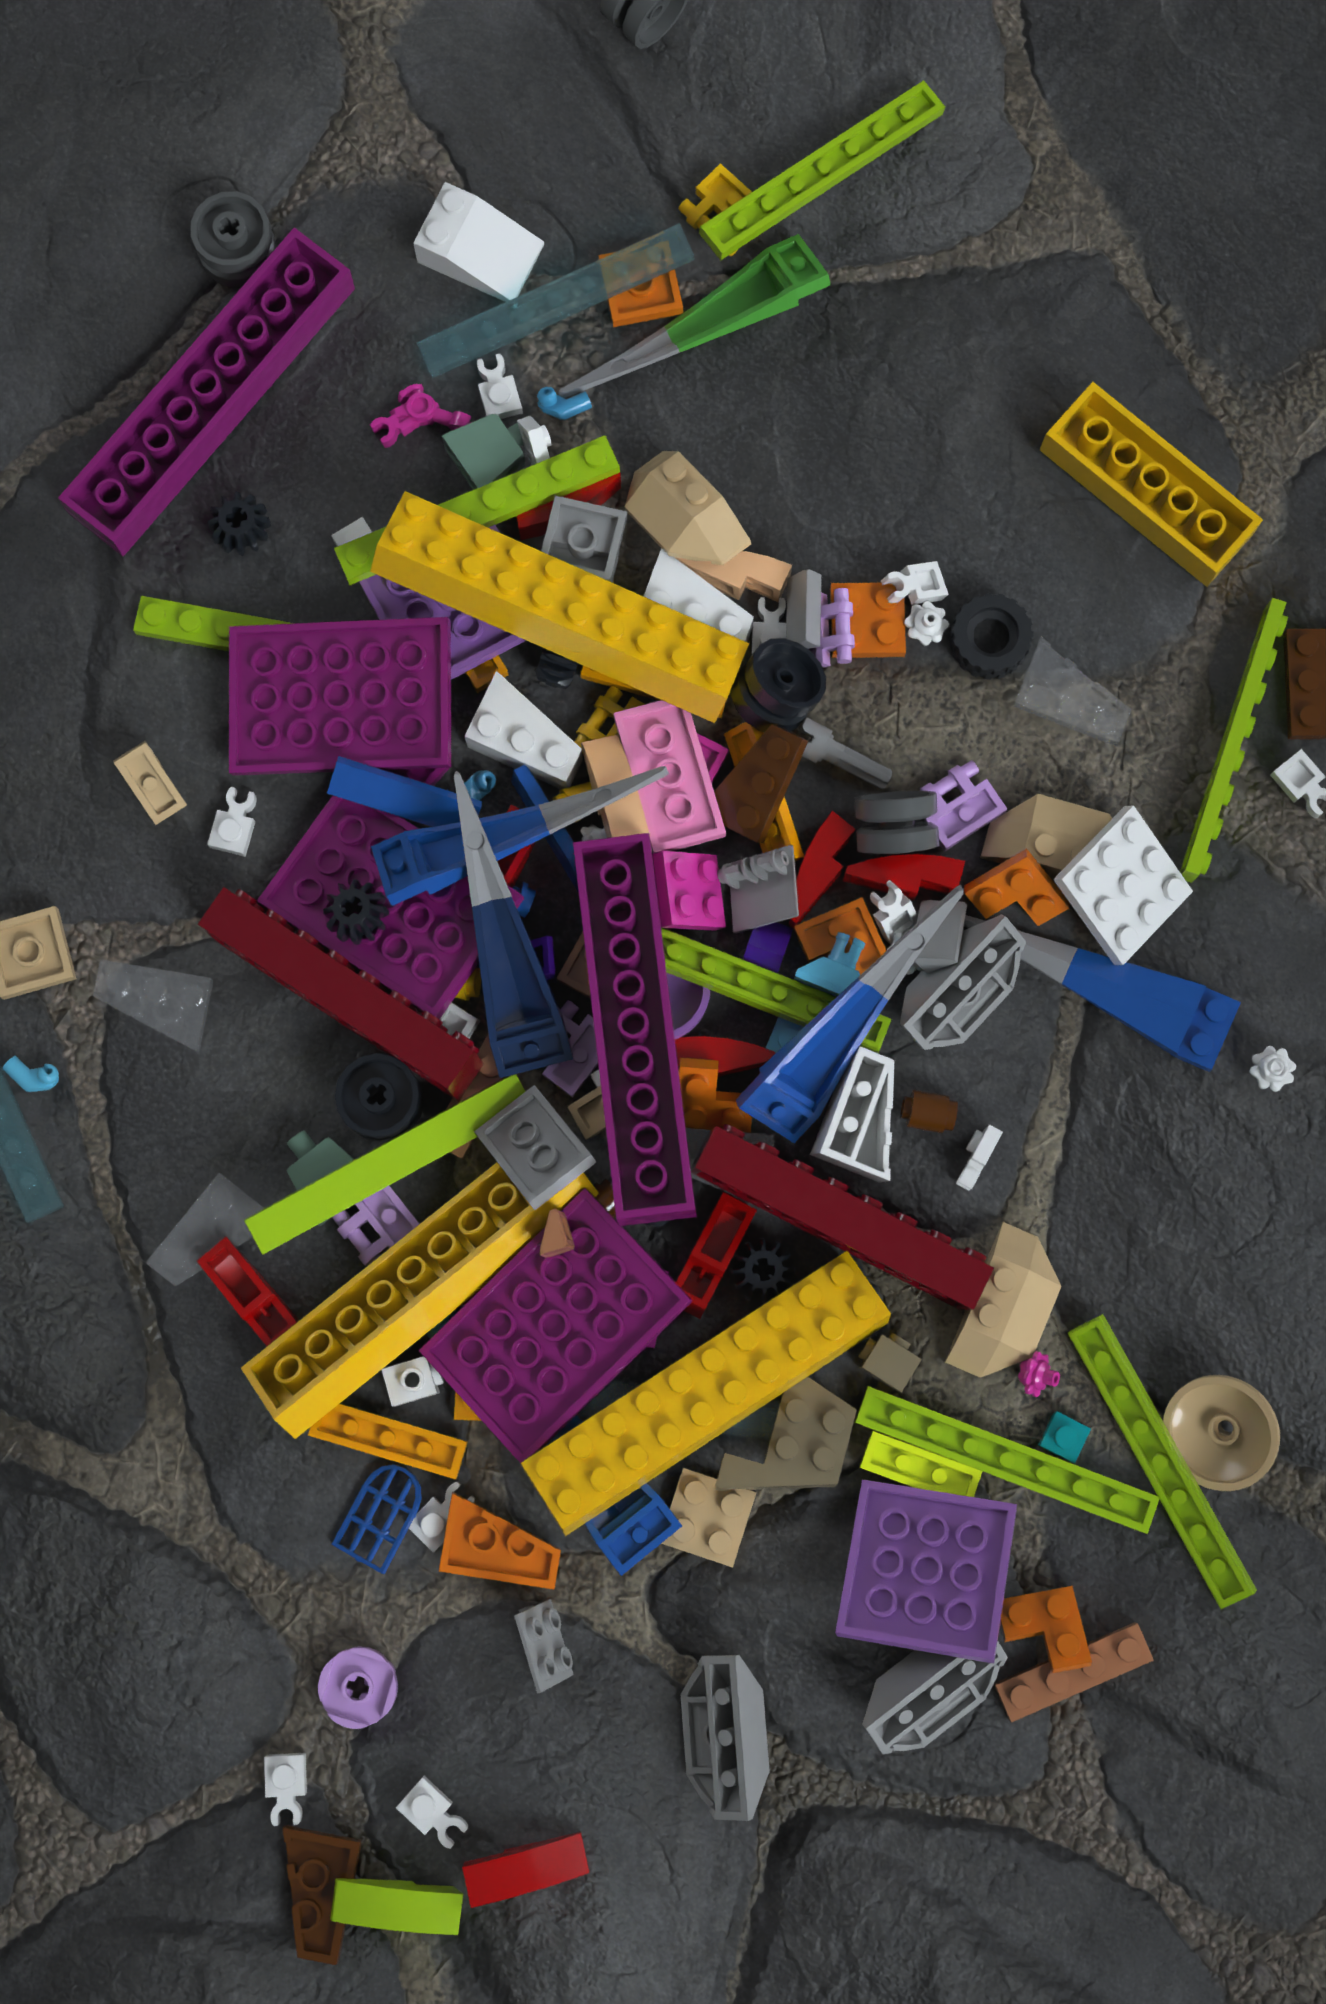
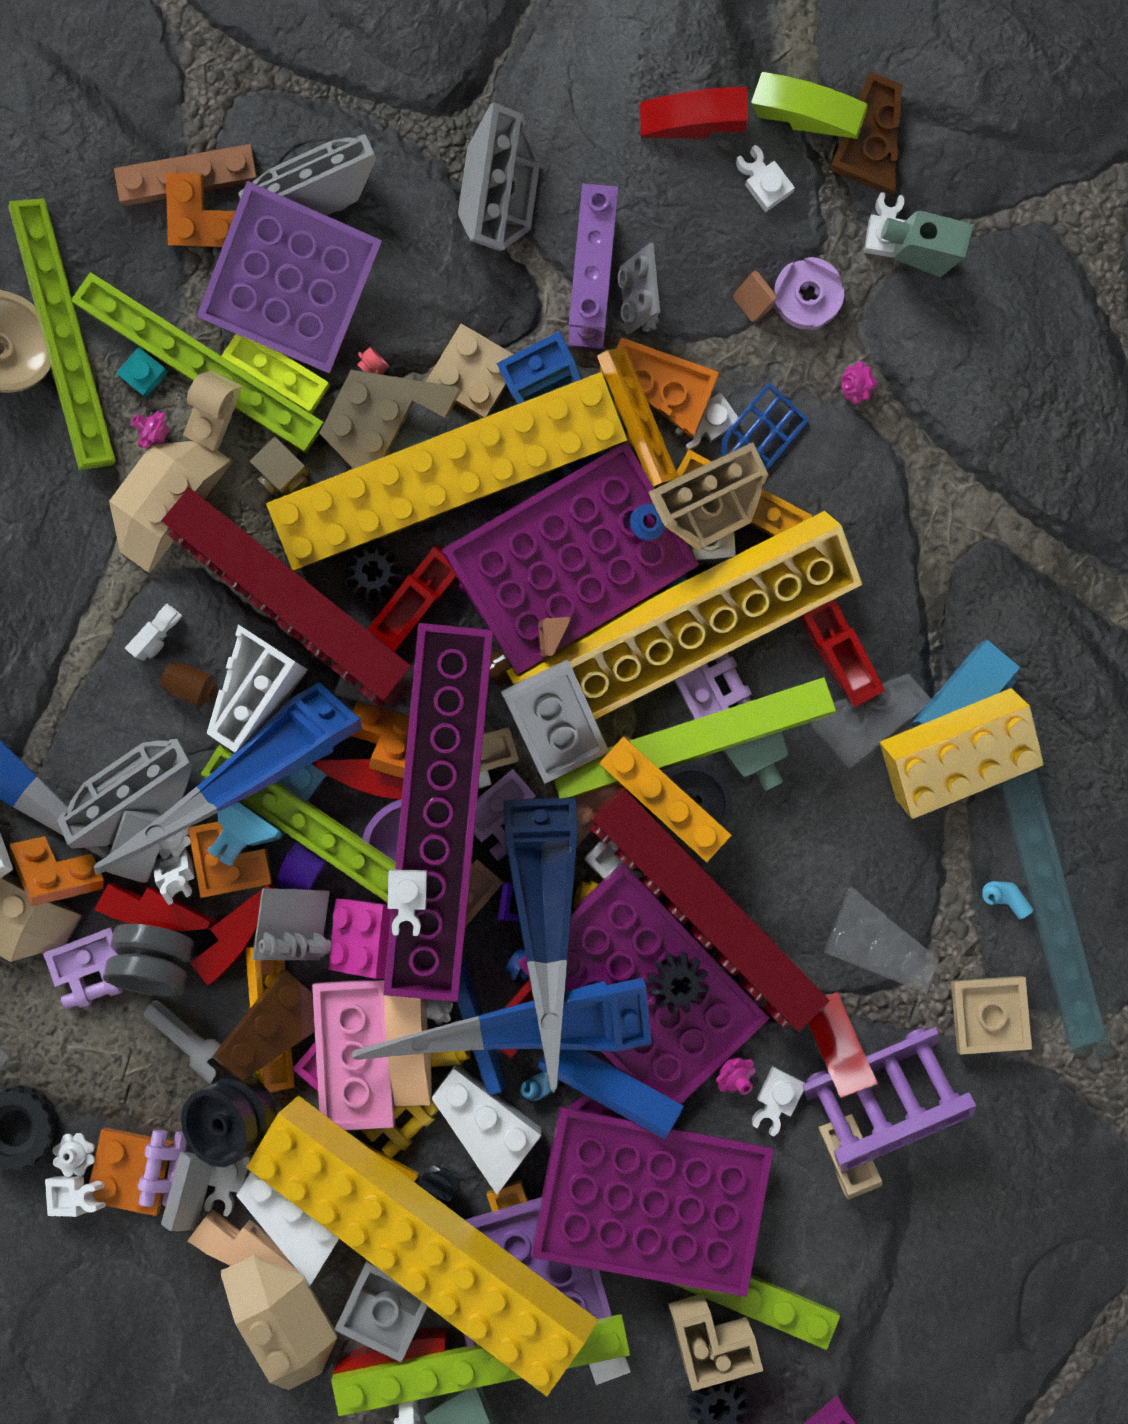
camera: 170 degrees left, 5 degrees up
(86, 828) = (918, 1121): none -> medium lavender fence
(103, 1211) = (962, 753): none -> yellow brick
(103, 1292) = (978, 677): none -> dark azure slope
(176, 885) = (841, 1048): none -> sticker
(235, 1770) = (928, 241): none -> sand green torso
(251, 570) = (710, 1351): none -> tan brick
(280, 837) = (736, 1075): none -> dark pink plant
(284, 1596) = (858, 382): none -> dark pink plant
(404, 1092) = (665, 799): none -> light orange plate
(416, 1669) = (755, 296): none -> nougat slope
(419, 1423) = (713, 497): none -> tan wedge
(492, 1384) = (638, 527): none -> blue plate
(516, 1498) = (637, 416): none -> light orange plate
(599, 1656) = (592, 267): none -> medium lavender fence
(646, 933) = (407, 892): none -> white plate
(817, 1501) = (372, 362): none -> coral plate
(977, 1409) = (213, 405): none -> tan plate

